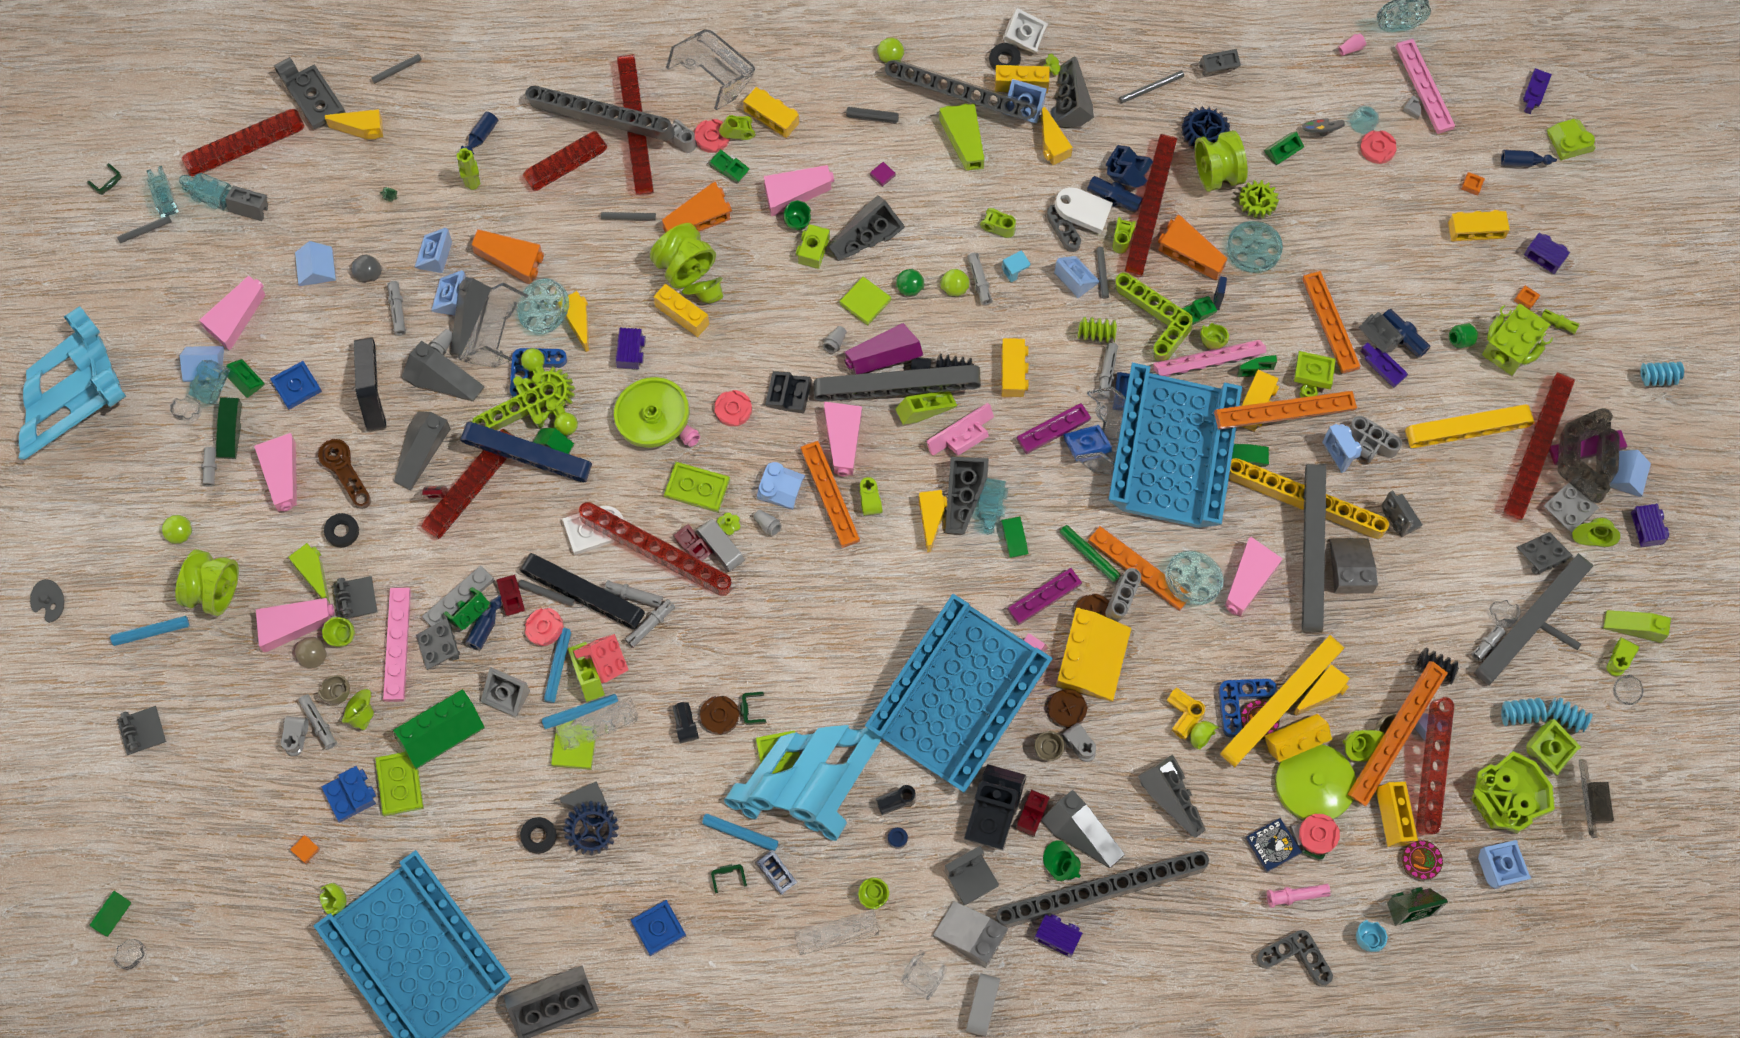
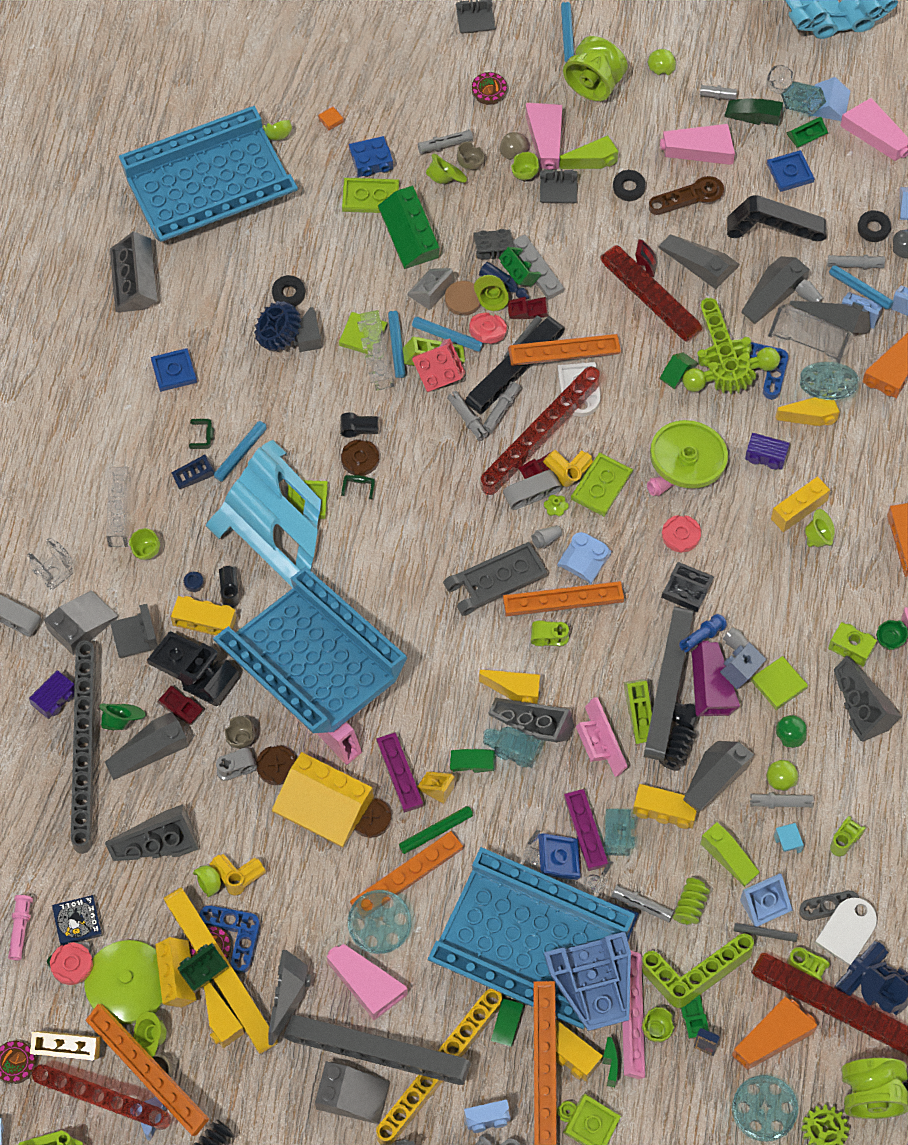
camera: 105 degrees right, 5 degrees down
(237, 694) = (489, 88): none -> reddish brown tile
(294, 732) = (438, 123): light grey piece -> none
(343, 291) = (877, 216): none -> black tyre
(397, 645) = (504, 212): bright pink plate -> none
(427, 297) = (861, 287): none -> dark azure axle
(504, 628) = (491, 292): none -> lime piece
(511, 658) = (461, 298): none -> medium nougat tile
(526, 452) = (667, 337): dark blue beam -> none
(559, 545) = (564, 349): none -> orange plate
(682, 255) = (858, 509): lime piece -> none
(694, 514) = (562, 467): none -> yellow piece
(822, 555) = (497, 577): none -> dark grey hinge
(833, 362) = (707, 630): none -> blue pin
(843, 432) = (623, 623): bright pink slope -> none
(863, 326) = (742, 665): none -> sand blue brick
(935, 815) = (202, 616): none -> yellow brick
(968, 328) = (716, 771): none -> dark grey wedge
(1041, 311) = (729, 854): none -> lime slope
(1049, 401) = (616, 843): none -> clear light blue brick
(1049, 560) = (437, 785): none -> yellow slope
(1128, 589) = (382, 853): light grey beam -> none
(1198, 383) = (594, 979): none -> medium blue wedge
(1282, 634) = (289, 993): none -> dark grey wedge
(1294, 707) = (202, 967): none -> dark green bracket

